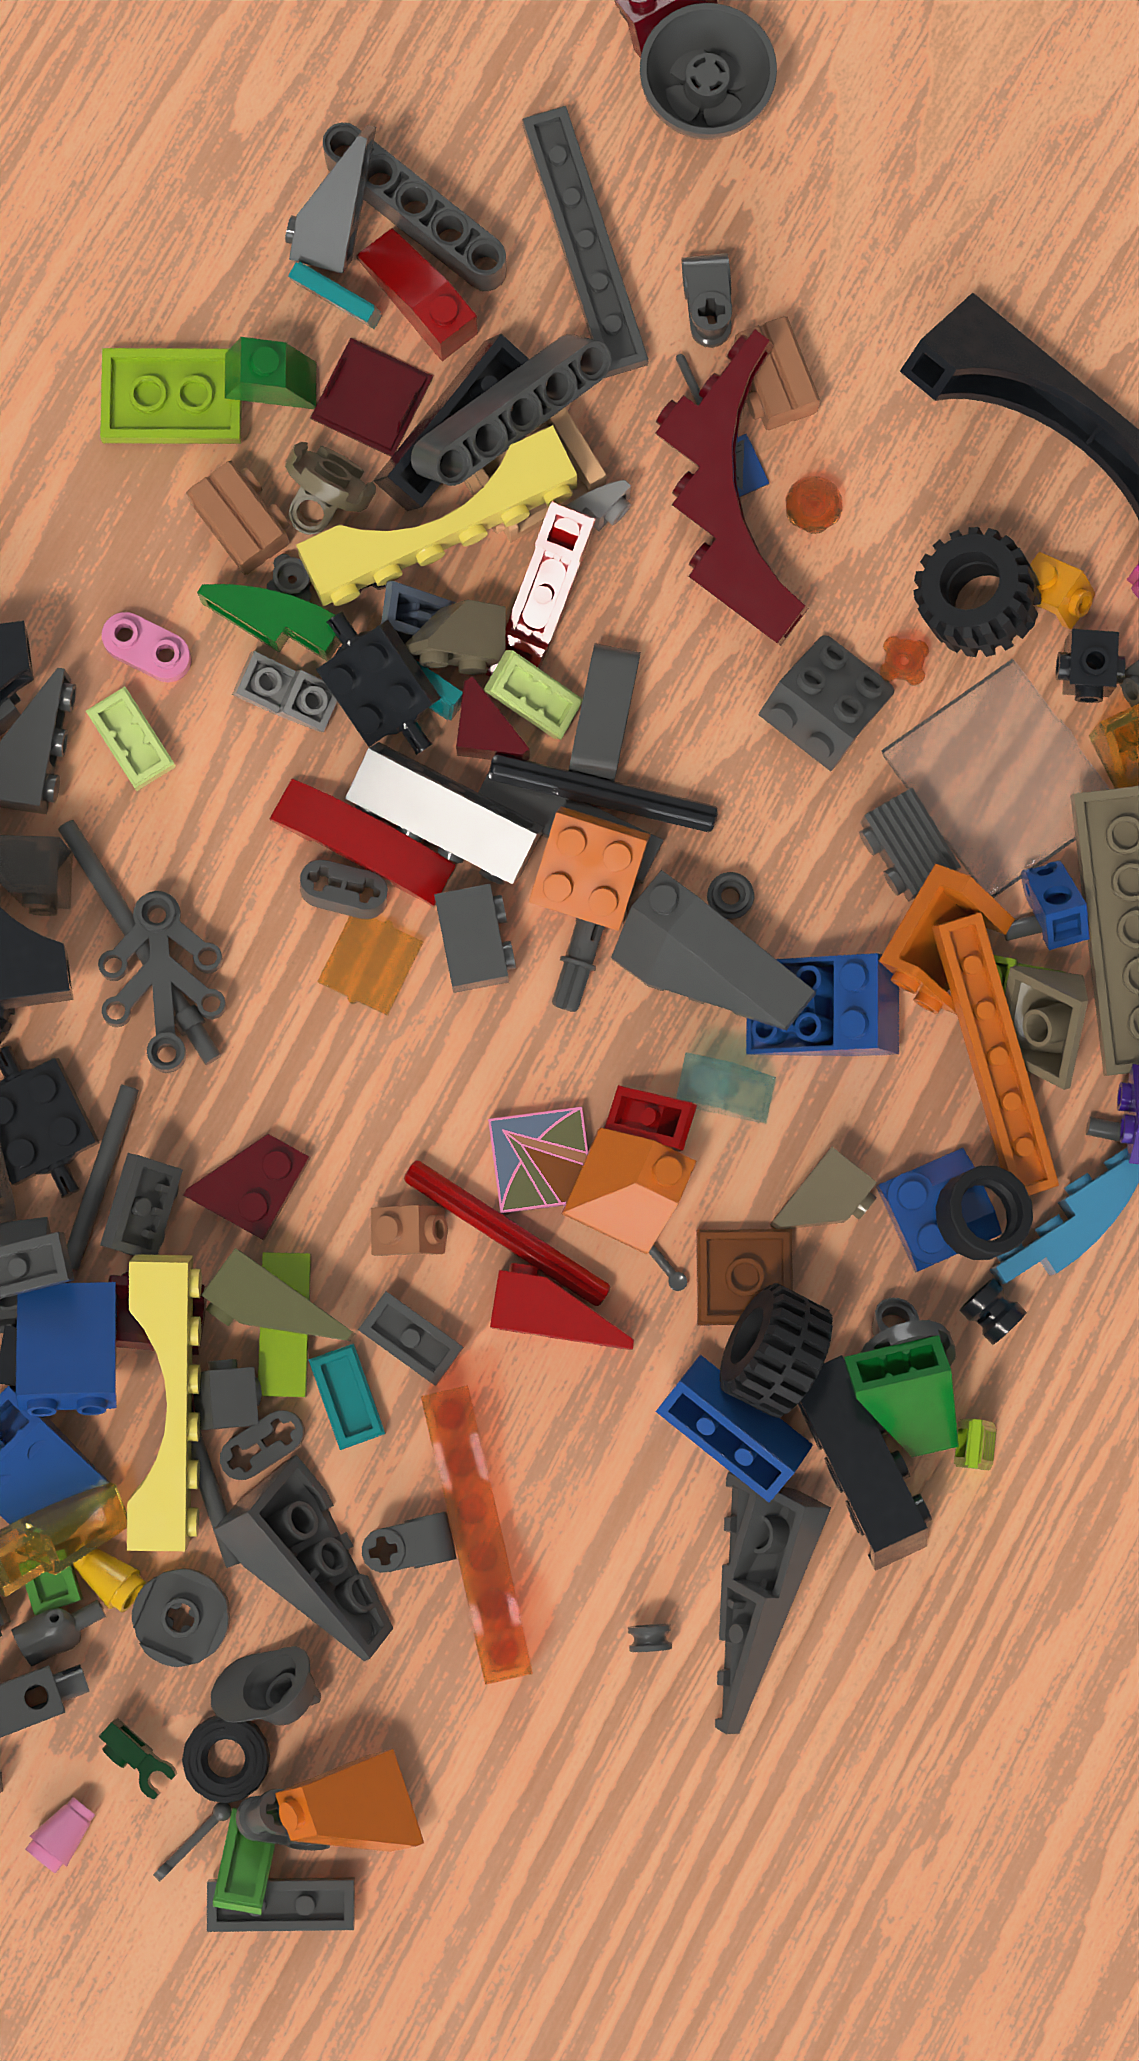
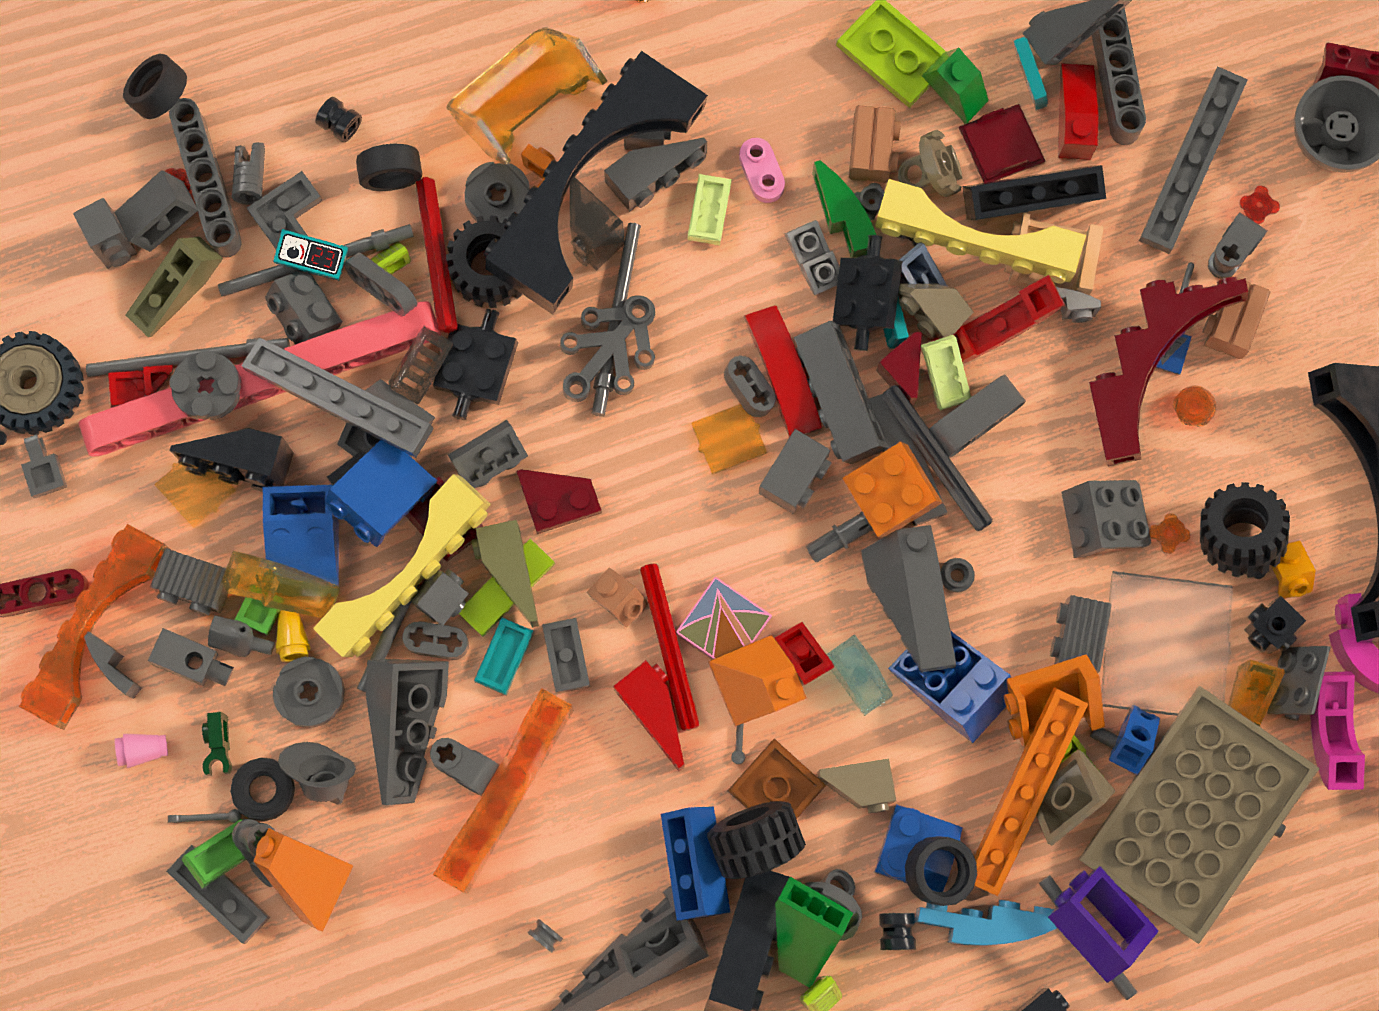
camera: 45 degrees right, 5 degrees down
(100, 1174) = (482, 422): dark grey bar -> none
(491, 412) = (1082, 218): dark grey beam -> none
(693, 244) = (1256, 213): none -> clear red plate

